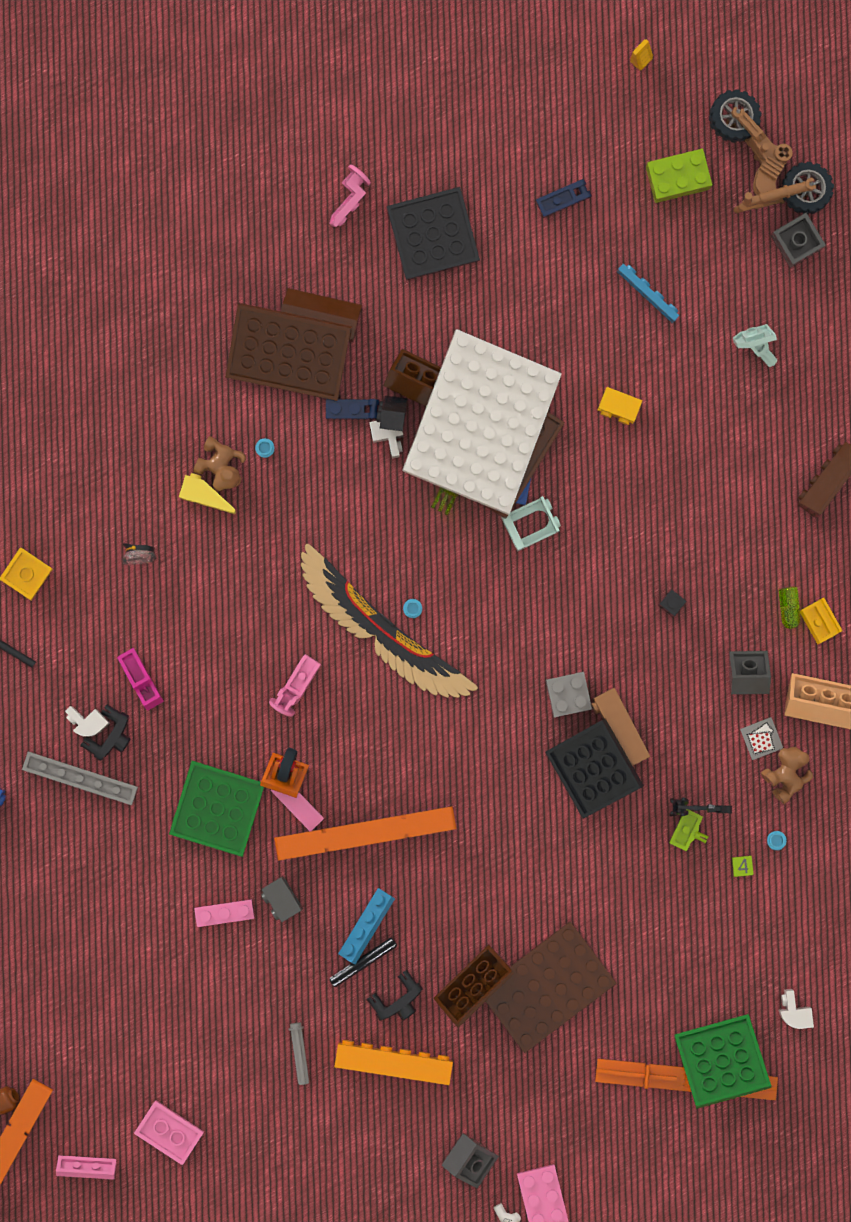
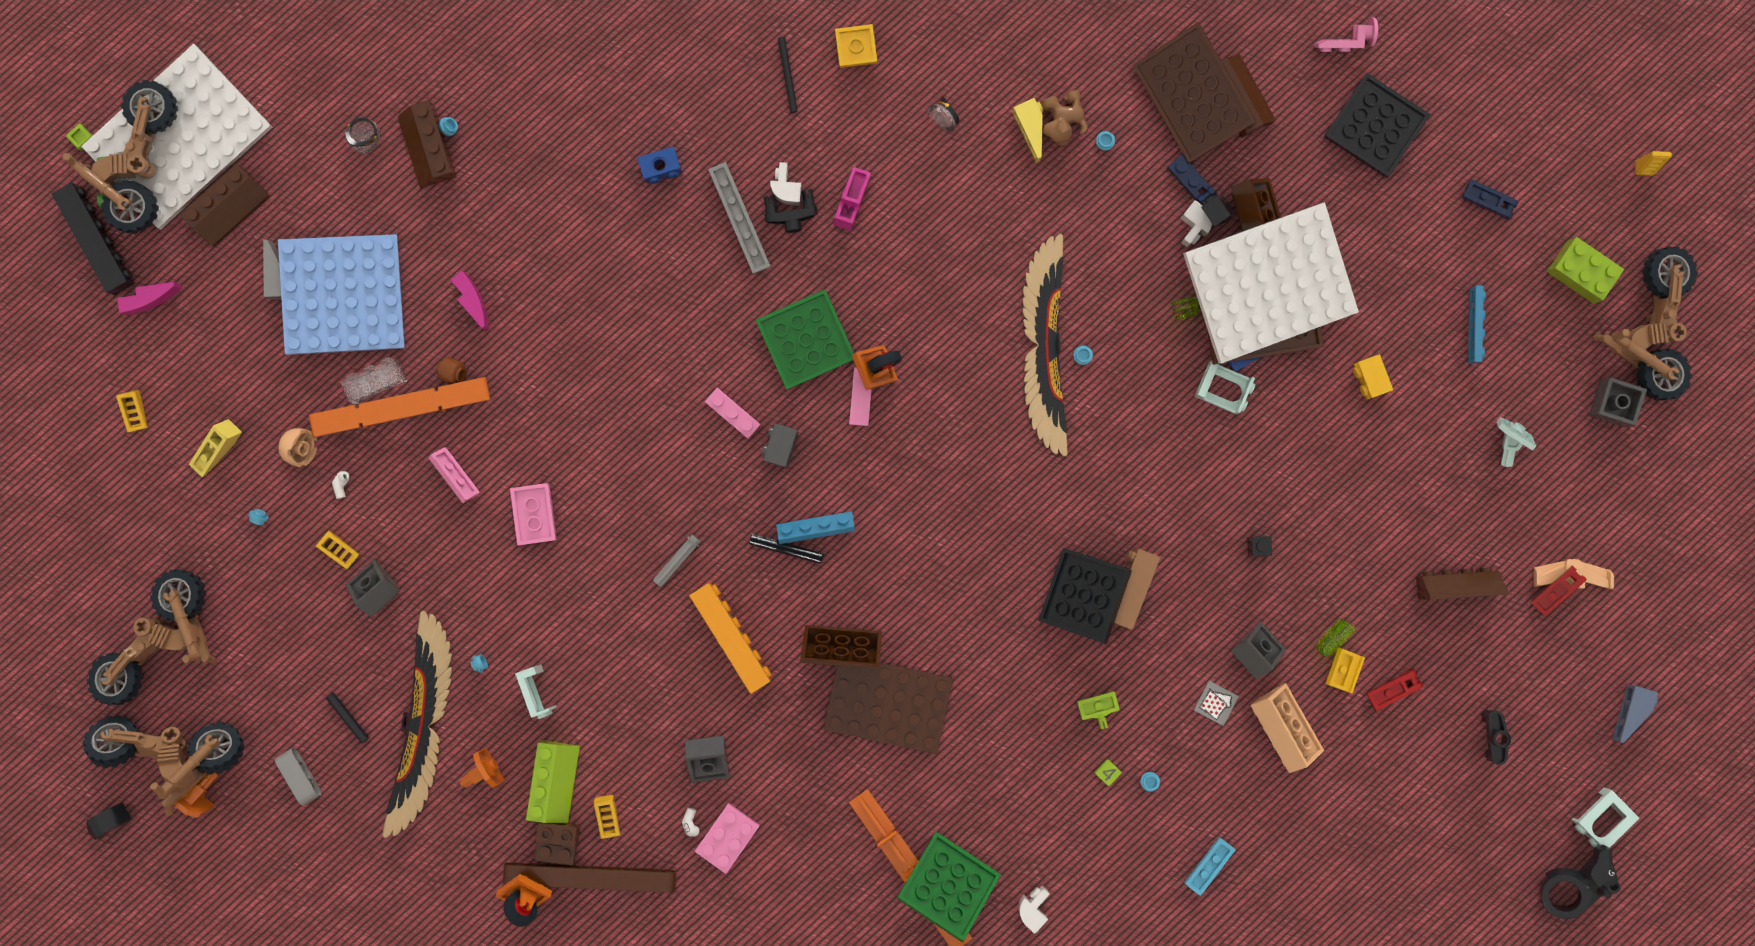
camera: 50 degrees right, 0 degrees up
(295, 686) = (948, 318): bright pink piece -> none
(365, 833) = (884, 465): orange piece -> none
(403, 1005) = (778, 606): black connector -> none
(568, 694) = (1122, 528): light grey brick -> none
(680, 807) = (1111, 687): black piece -> none
(791, 761) = (1221, 740): medium nougat animal -> none

